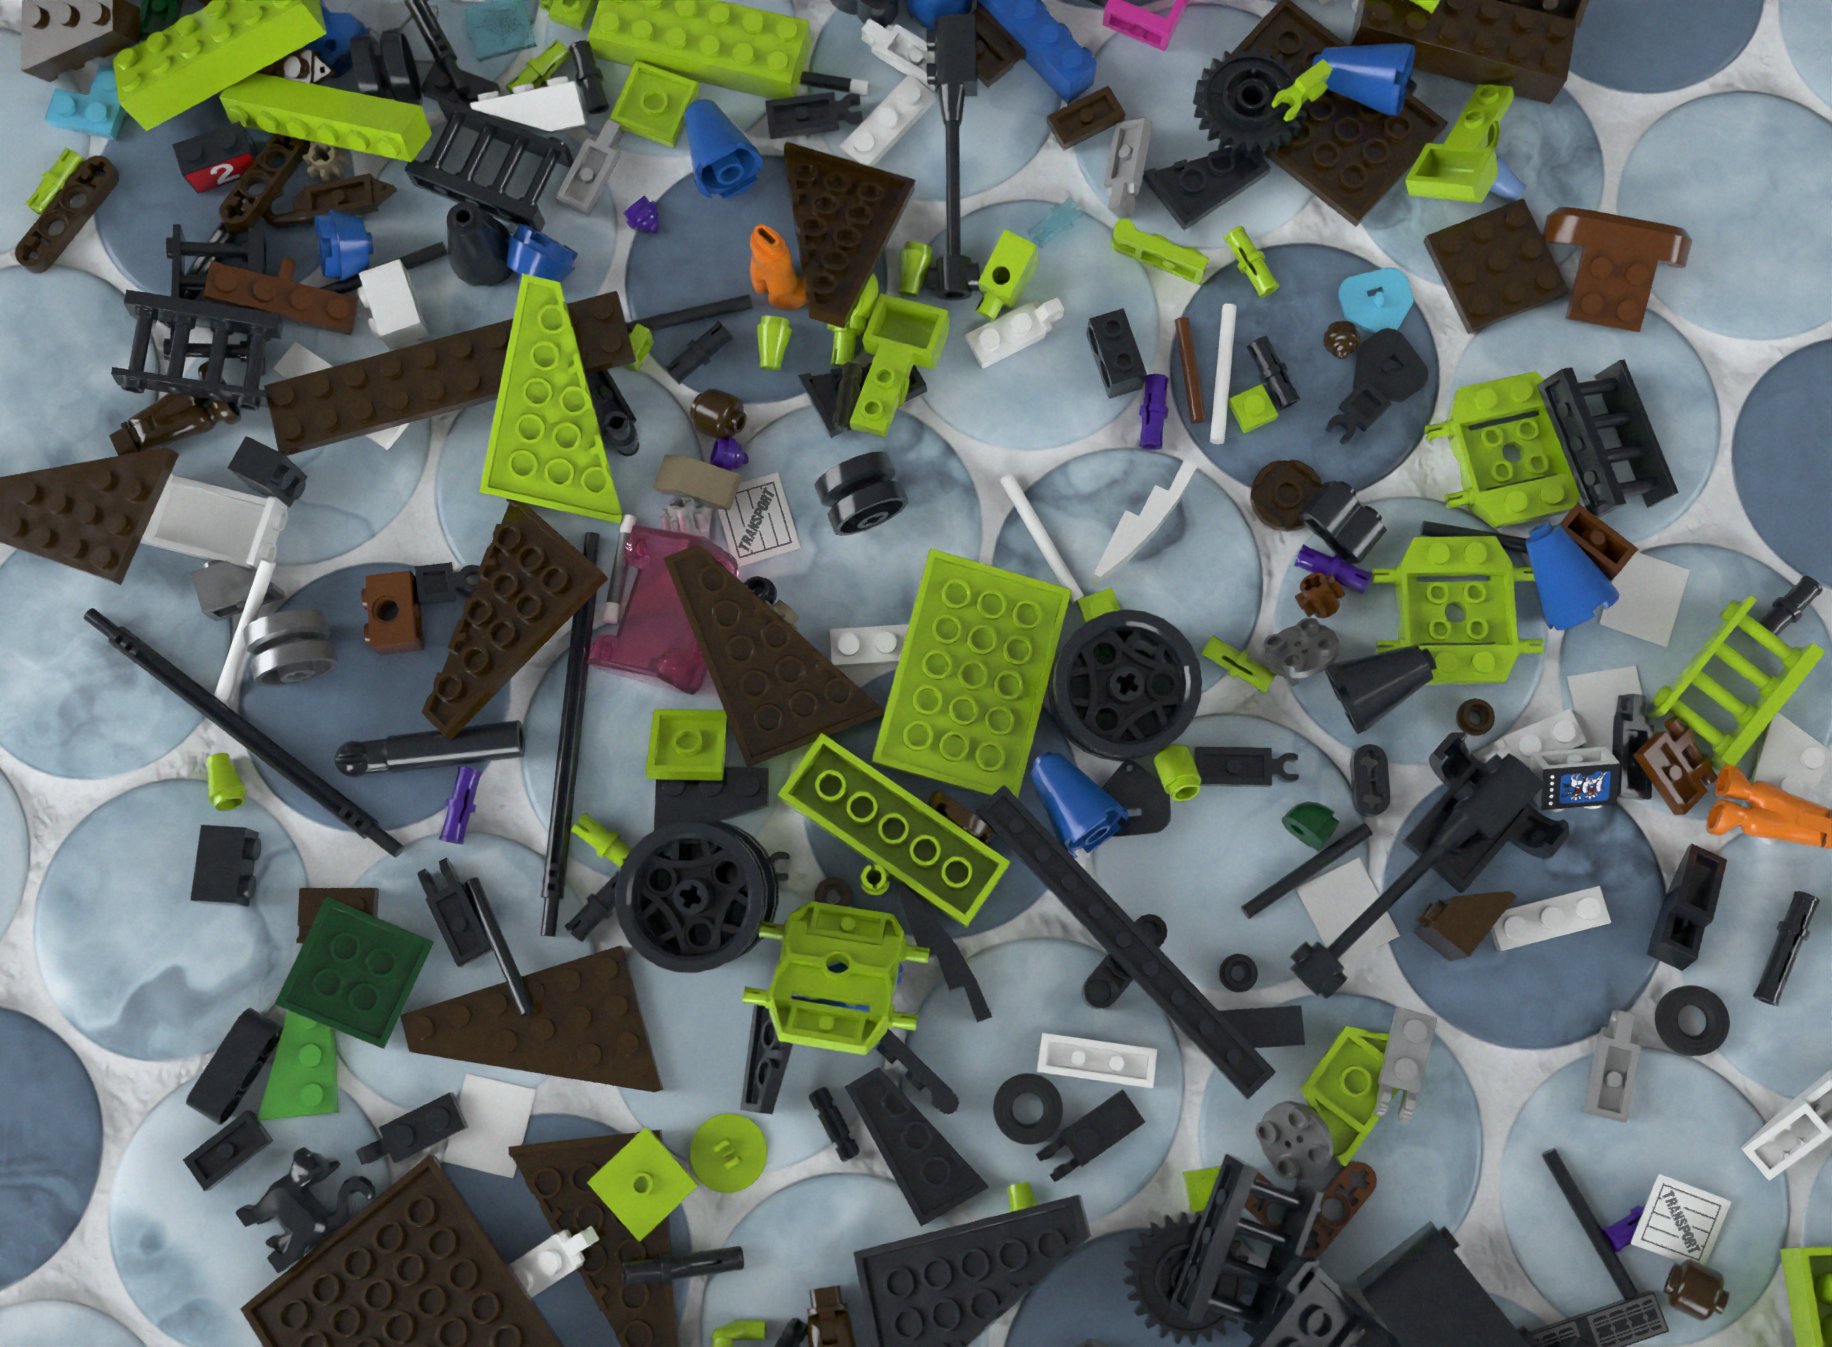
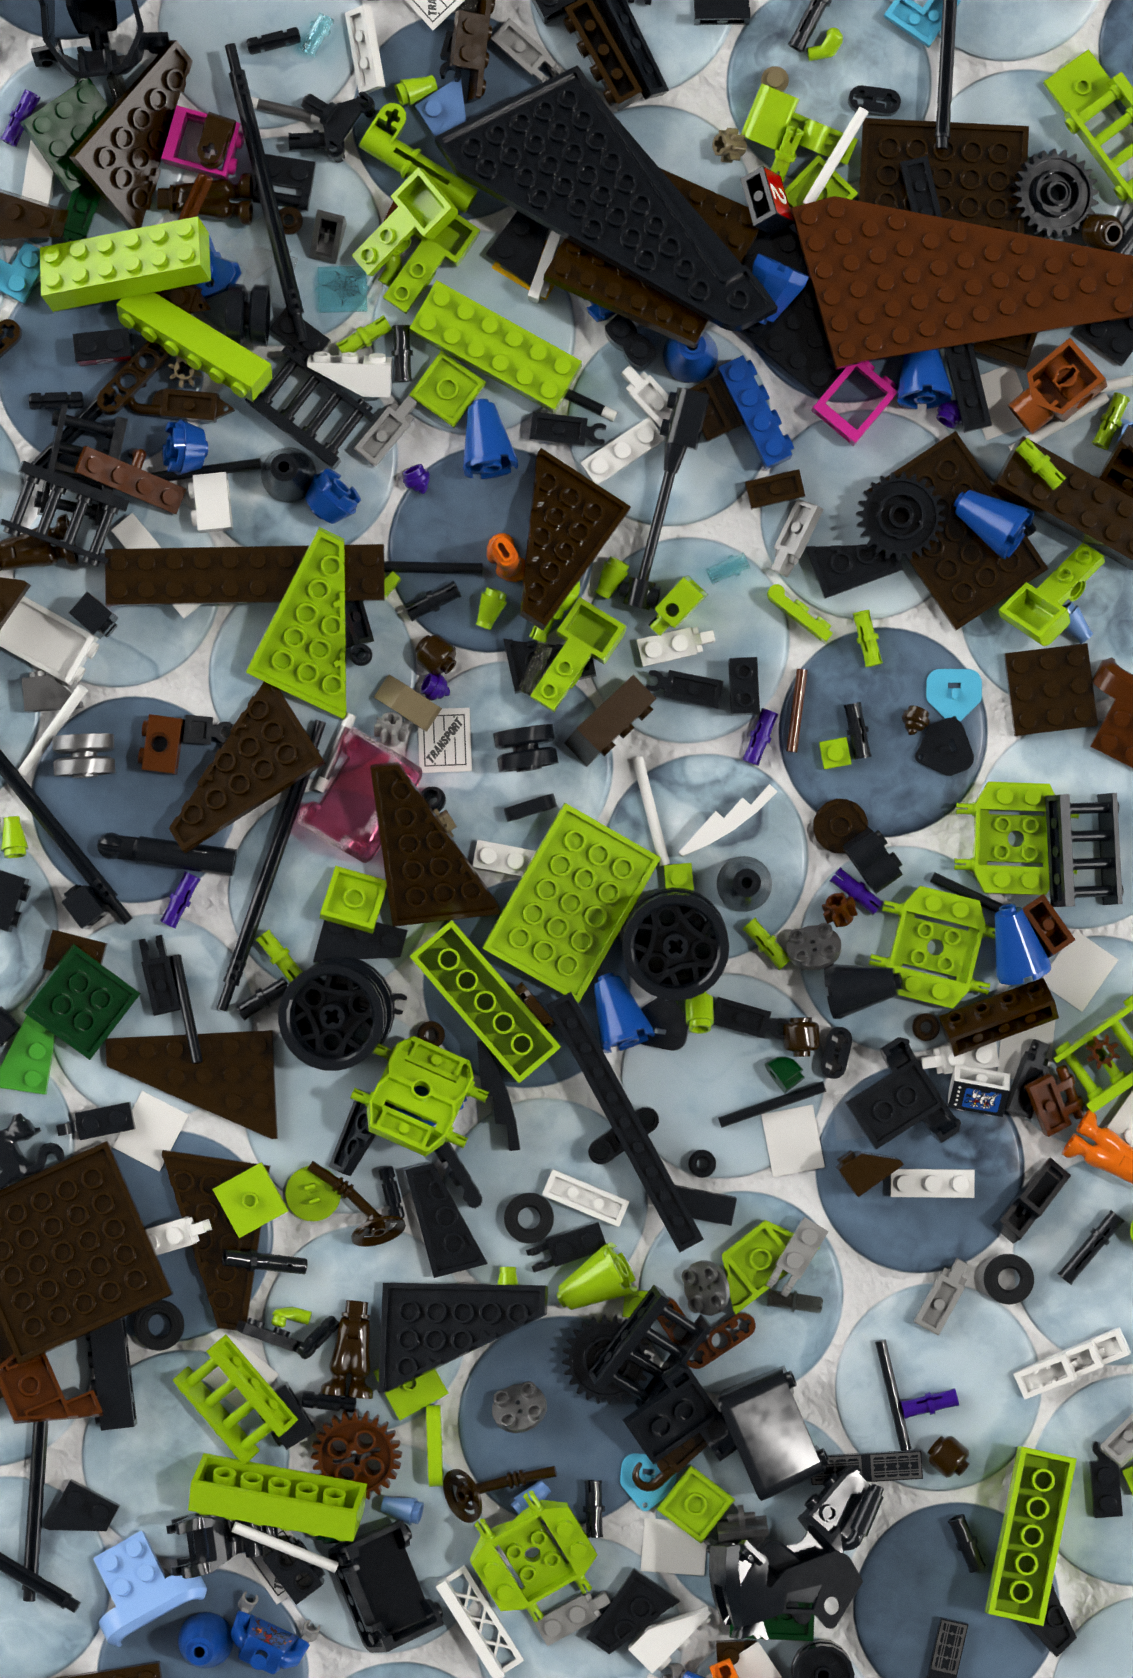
camera: 15 degrees right, 10 degrees up
(151, 242) = (54, 399): none -> black axle
(331, 843) = (84, 906): none -> black brick
(822, 1172) = (376, 1224): none -> dark brown dish
(868, 873) = (457, 1038): lime pin -> none
(886, 571) = (530, 807): none -> black beam
(959, 437) = (610, 721): none -> dark brown wedge
(1045, 375) = (688, 688): none -> black plate
(1144, 1170) = (597, 1280): none -> lime cone
(1187, 596) = (731, 888): none -> black cone
(1223, 374) = (821, 720): white bar -> none
(1307, 86) = (943, 523): lime plate -> none
(1319, 770) = (801, 1036): none -> dark brown head
(1360, 409) = (914, 775): black plate -> none
(1418, 1128) = (795, 1301): none -> clear smoke axle
(1479, 810) = (902, 1096): black bar -> none
(1568, 676) = (999, 1017): none -> dark brown brick
(1680, 1221) = (953, 1410): white sticker -> none
(1730, 674) = (1098, 1044): none -> reddish brown gear

